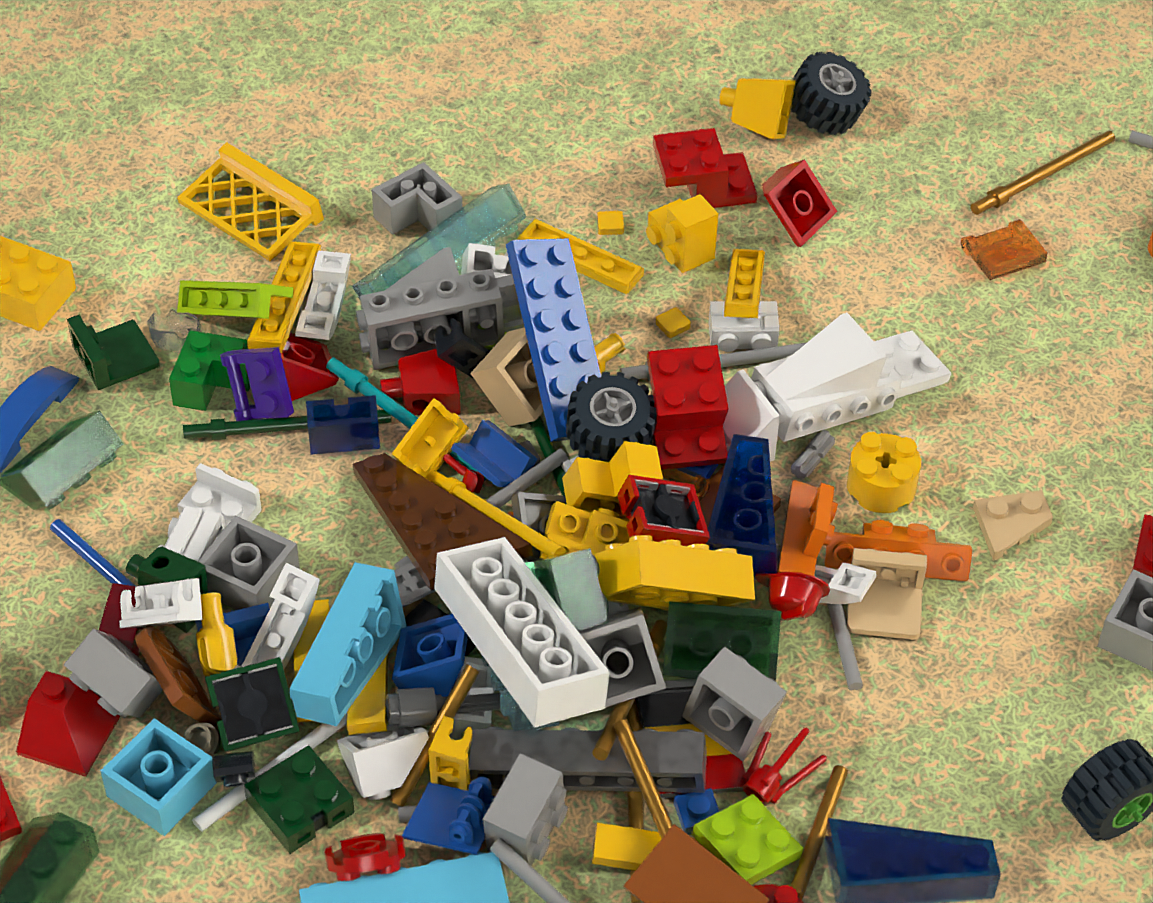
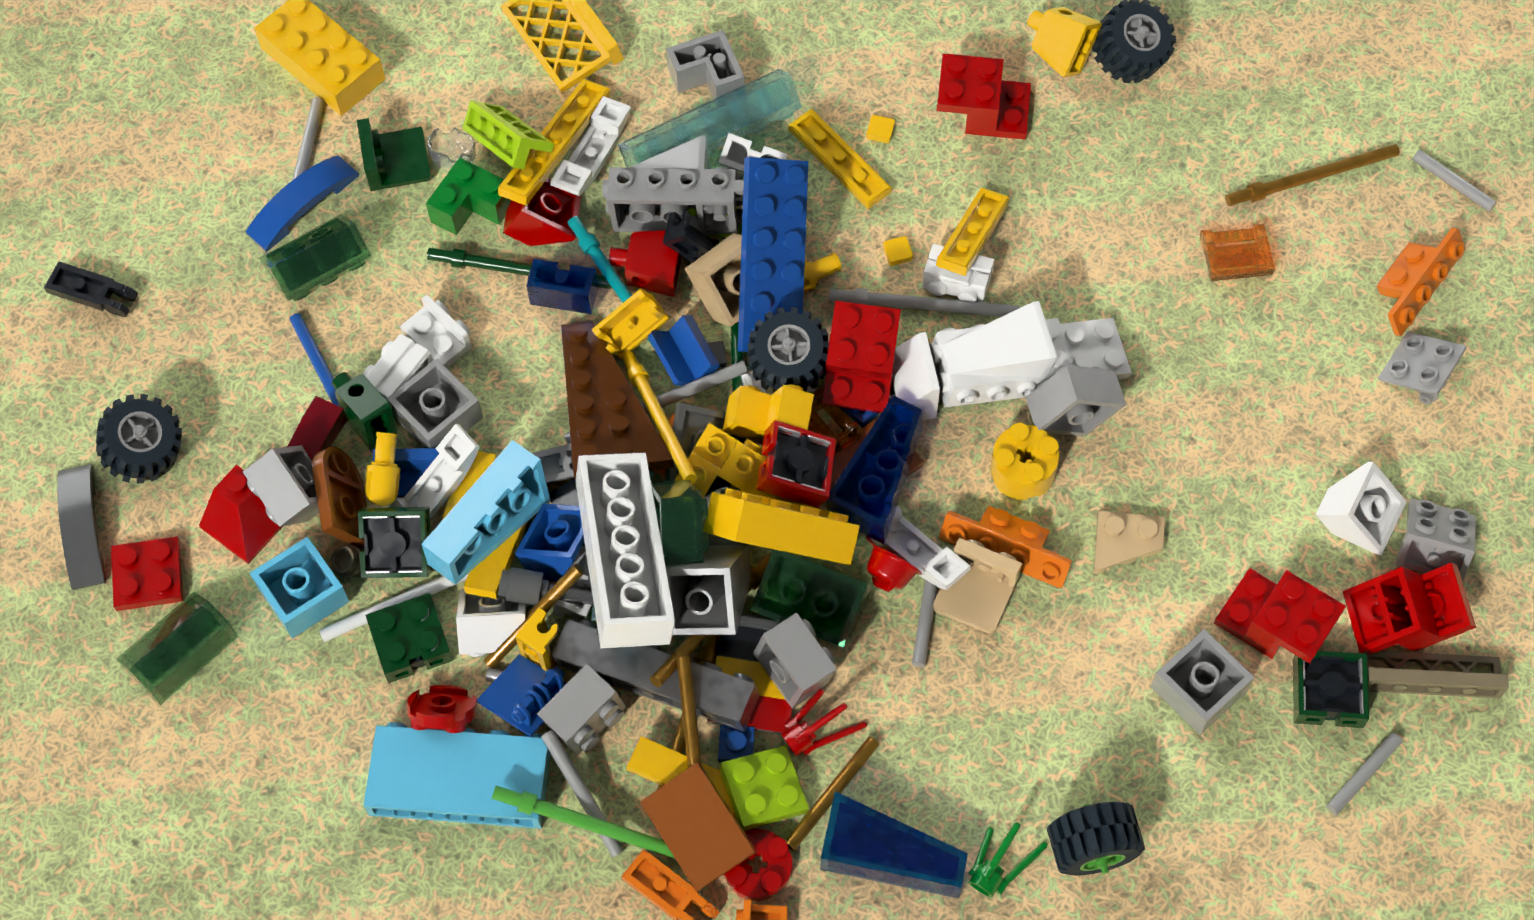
camera: 20 degrees right, 15 degrees up
(11, 354) = (309, 136): none -> light grey bar
(162, 604) = (343, 434): white hinge -> none
(234, 768) = (361, 596): black slope -> none
(266, 382) = (506, 225): dark purple plate -> none
(472, 479) = (657, 368): red hand -> none
(685, 232) = (939, 161): yellow brick -> none
(798, 201) = (1058, 152): red slope -> none
(806, 526) = (928, 503): orange bracket -> none
(813, 452) = (966, 427): light grey piece -> none
(914, 399) = (1075, 400): none -> light grey brick
(1017, 864) = (988, 876): none -> green plant

